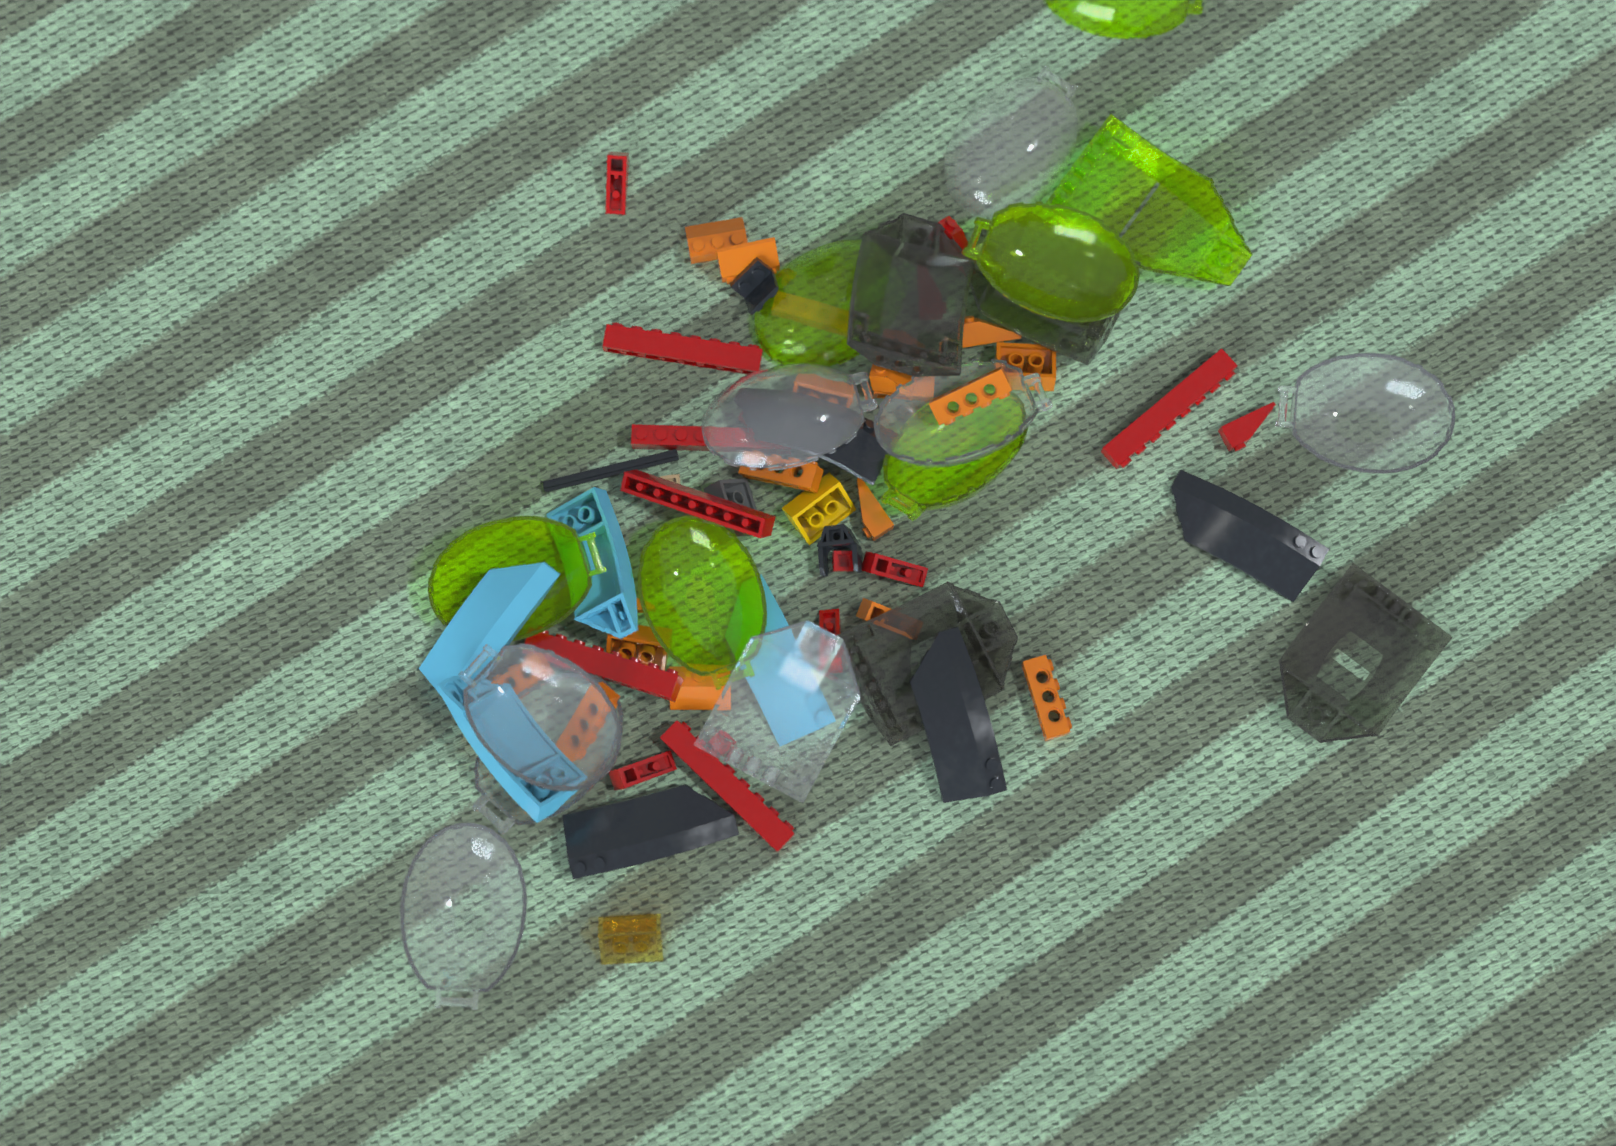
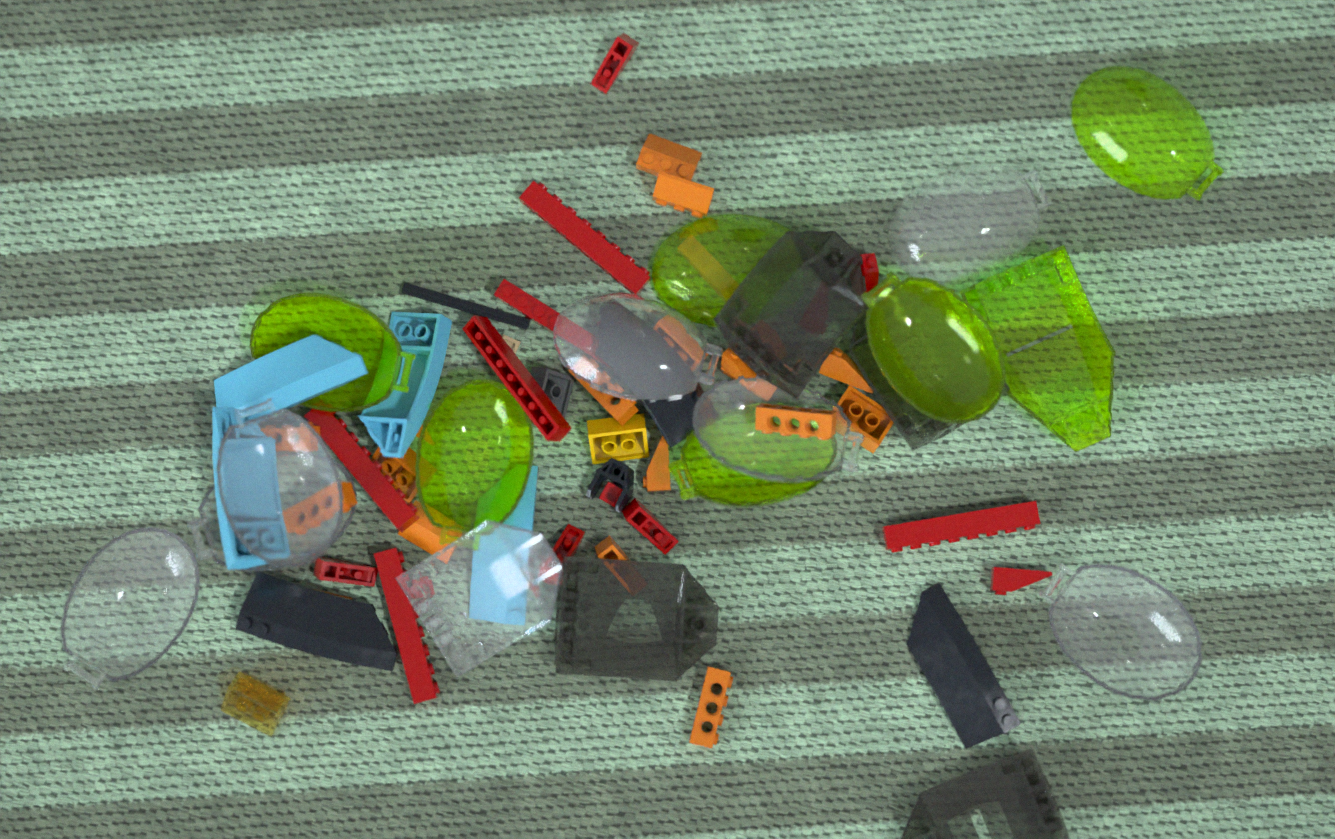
camera: 30 degrees right, 5 degrees up
(756, 285) = (677, 219): black bracket -> none
(957, 721) = (622, 684): black slope -> none

